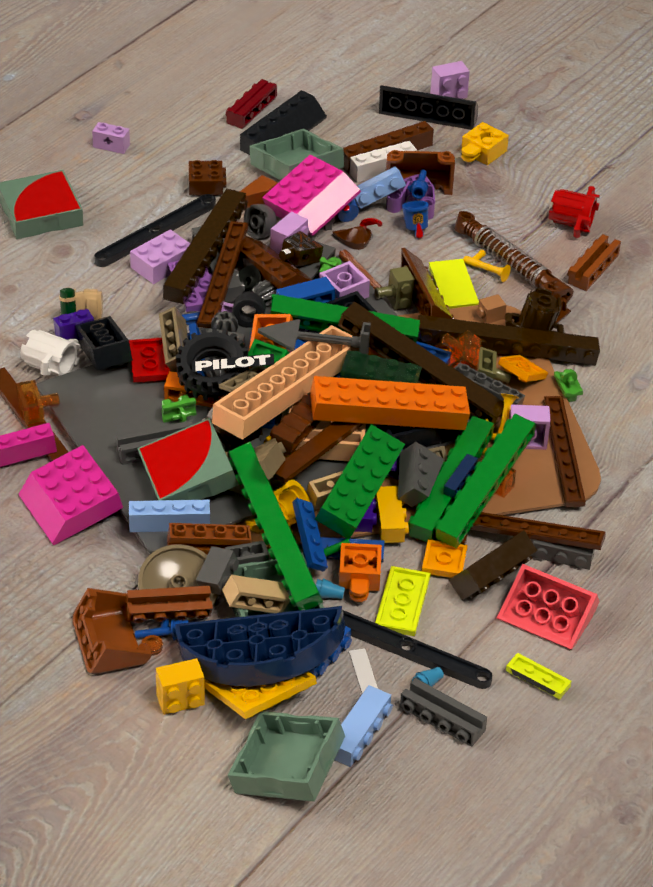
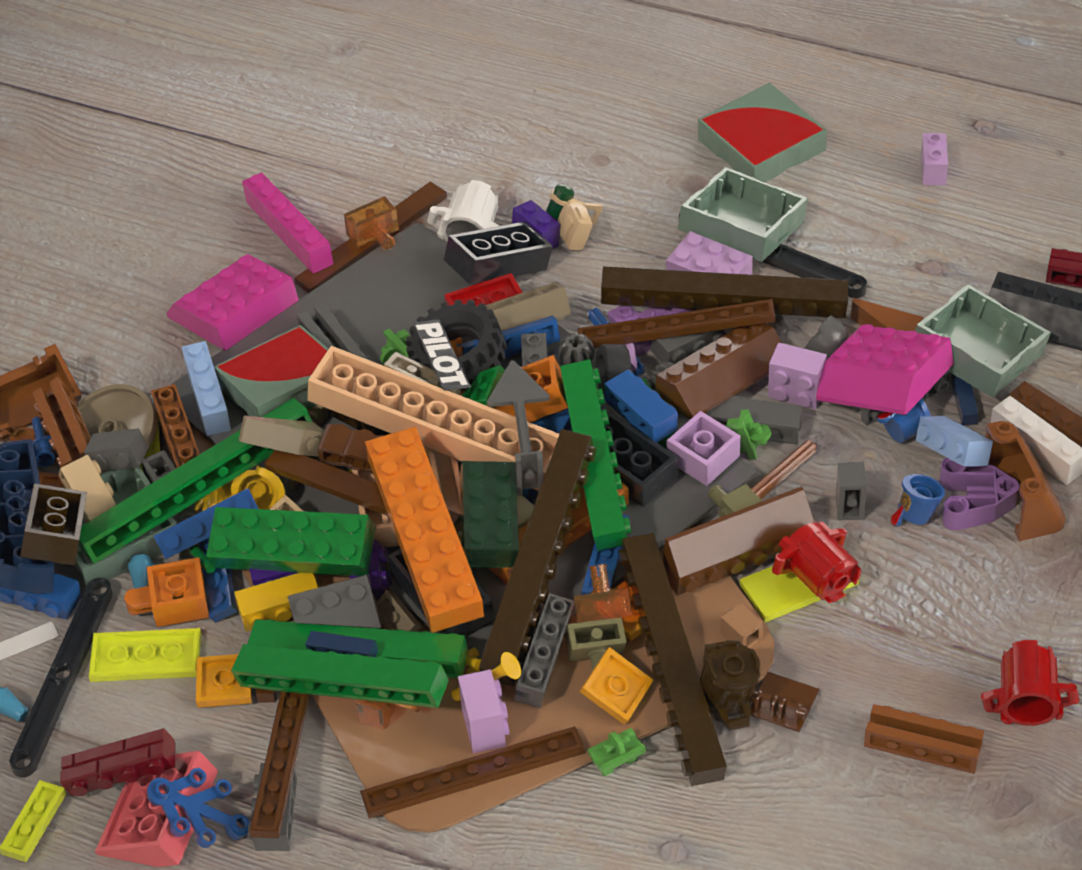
camera: 80 degrees right, 5 degrees up
(123, 225) = (743, 213): none -> sand green tile
(206, 177) = (895, 266): reddish brown brick -> none
(301, 249) = (756, 385): dark brown torso -> none
(306, 594) = (53, 524): none -> dark brown brick
(357, 237) = (855, 448): reddish brown piece -> none
(398, 237) = (850, 491): none -> dark grey brick
(419, 187) = (968, 482): blue piece -> none
(457, 260) = (818, 560): none -> red container
(475, 261) = (845, 631): yellow piece -> none
(493, 566) = (201, 725): dark brown brick -> none
(511, 614) = (118, 762): none -> dark red brick
(540, 276) = (832, 698): reddish brown piece -> none
(571, 576) = (195, 808): none -> blue plant

